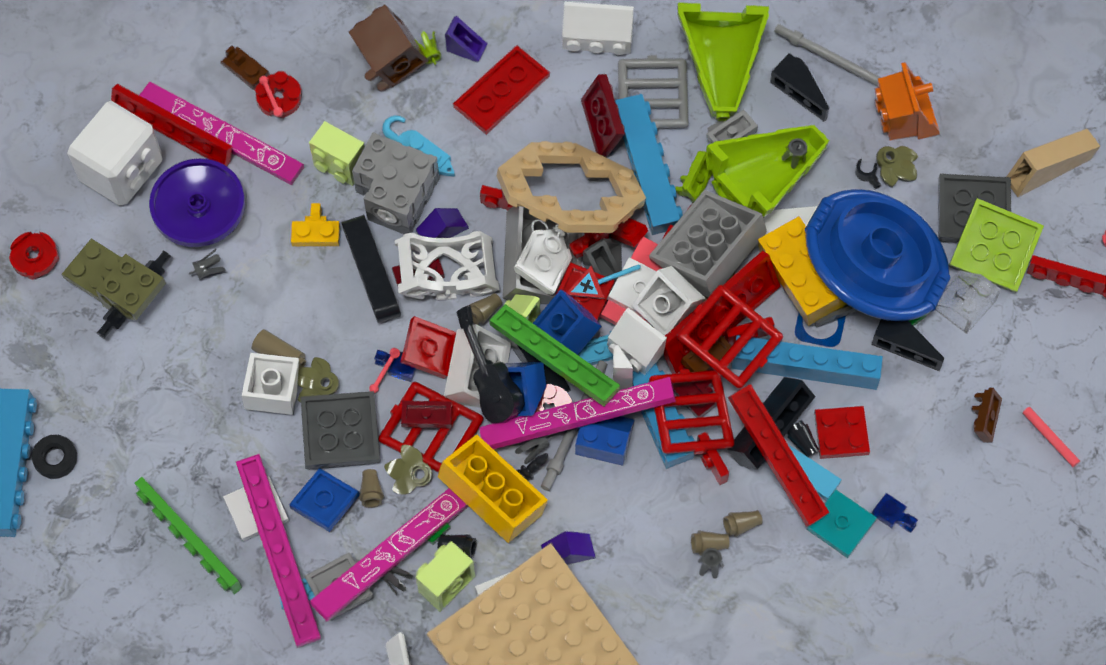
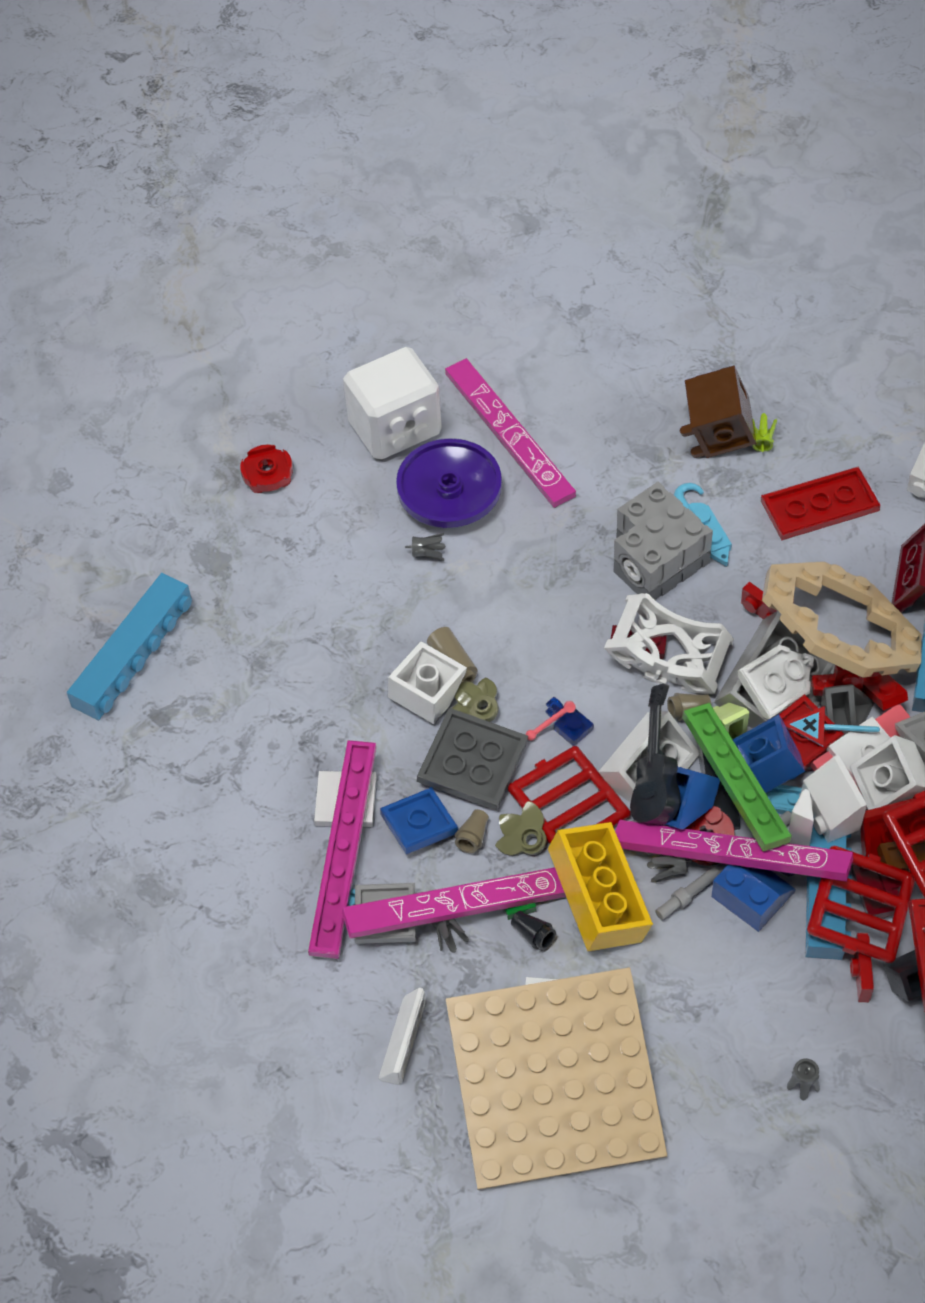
camera: 30 degrees right, 10 degrees down
(60, 469) = (180, 675): black tyre -> none
(116, 282) = (329, 523): olive piece -> none
(173, 126) = (466, 406): red plate -> none
(193, 543) = (262, 804): bright green plate -> none
(244, 66) = (567, 381): reddish brown plate -> none
(278, 112) = (576, 431): coral hinge -> none
(279, 83) = (586, 407): red plate -> none
(315, 230) = (555, 558): yellow hinge -> none
(335, 152) = (610, 487): yellowish green brick -> none
(371, 269) = (590, 617): black beam -> none
(426, 414) = (570, 781): dark red plate -> none
(428, 347) = (607, 716): red plate -> none
(442, 223) = (690, 603): dark purple slope -> none
(445, 576) = (500, 952): yellowish green brick -> none
(464, 41) = (803, 439): dark purple slope -> none
(527, 471) = (647, 889): black bar -> none
(572, 546) = (657, 989): dark purple slope -> none
(703, 540) = (812, 1050): dark tan cone -> none
(740, 522) = (862, 1051): dark tan cone -> none

